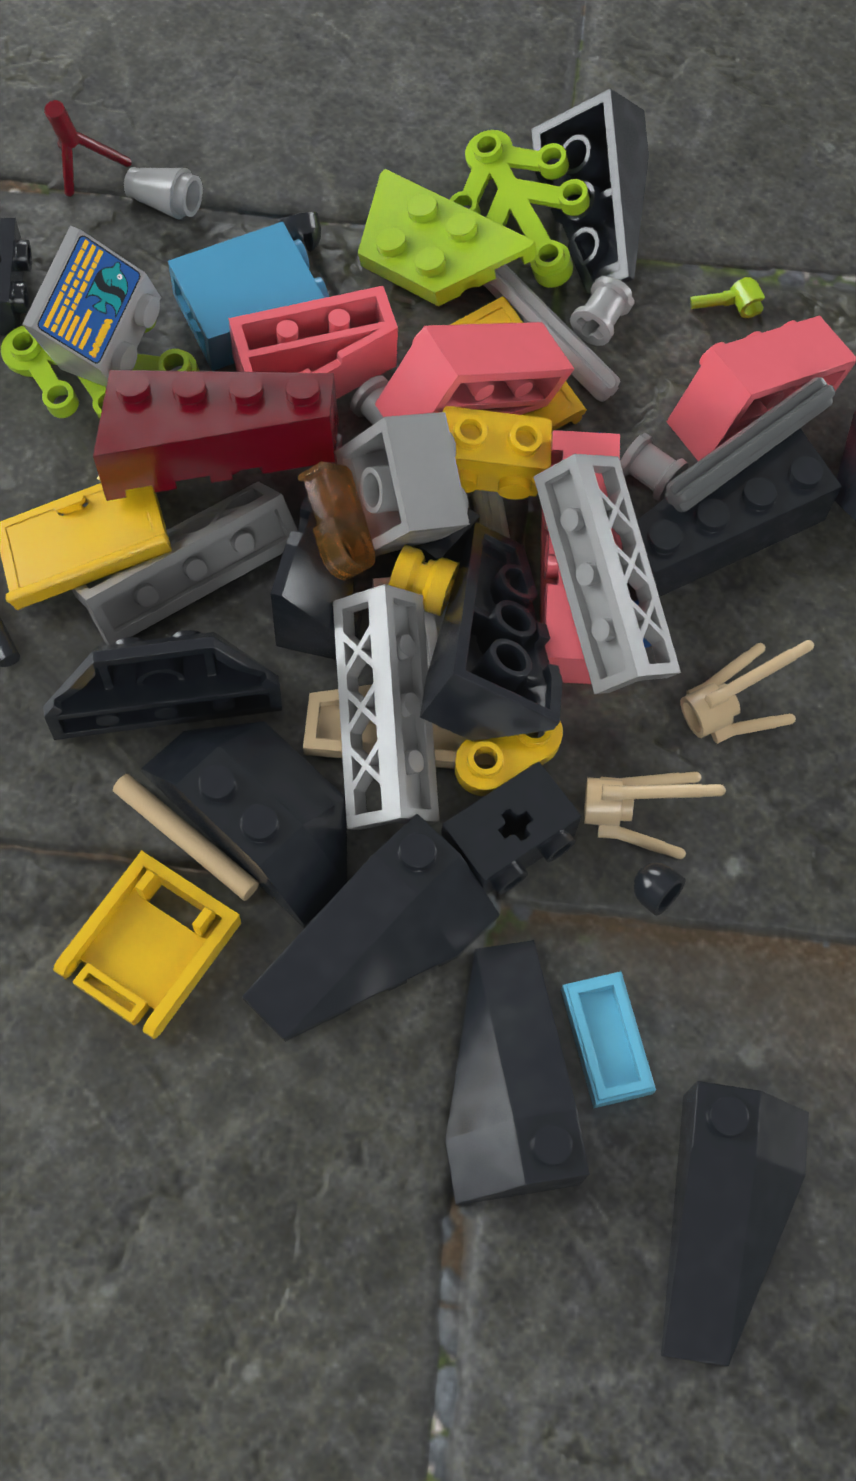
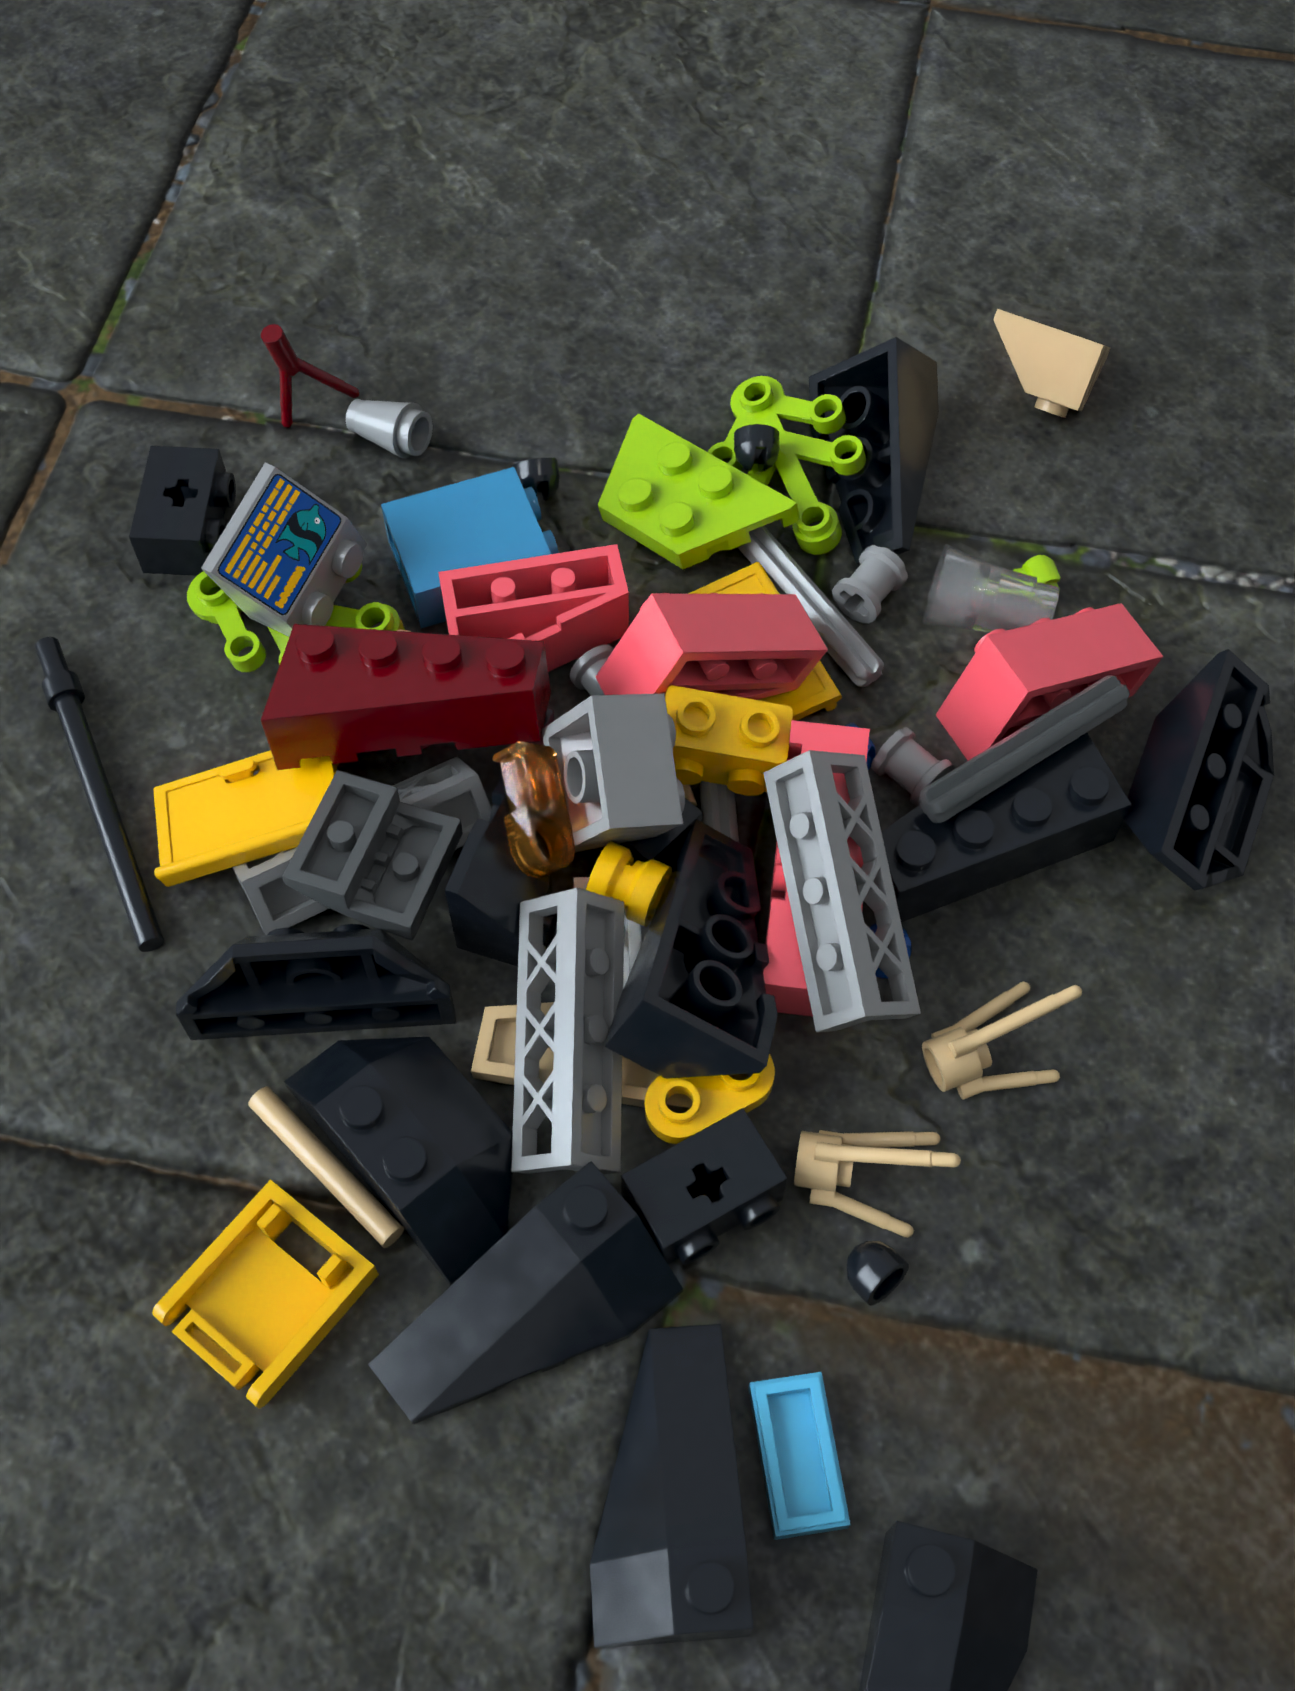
camera: 10 degrees right, 5 degrees down
(200, 568) = (373, 855): none -> dark grey slope
(493, 192) = (756, 445): none -> black hinge
(701, 315) = (984, 595): none -> clear plant
(742, 105) = (1051, 362): none -> tan slope

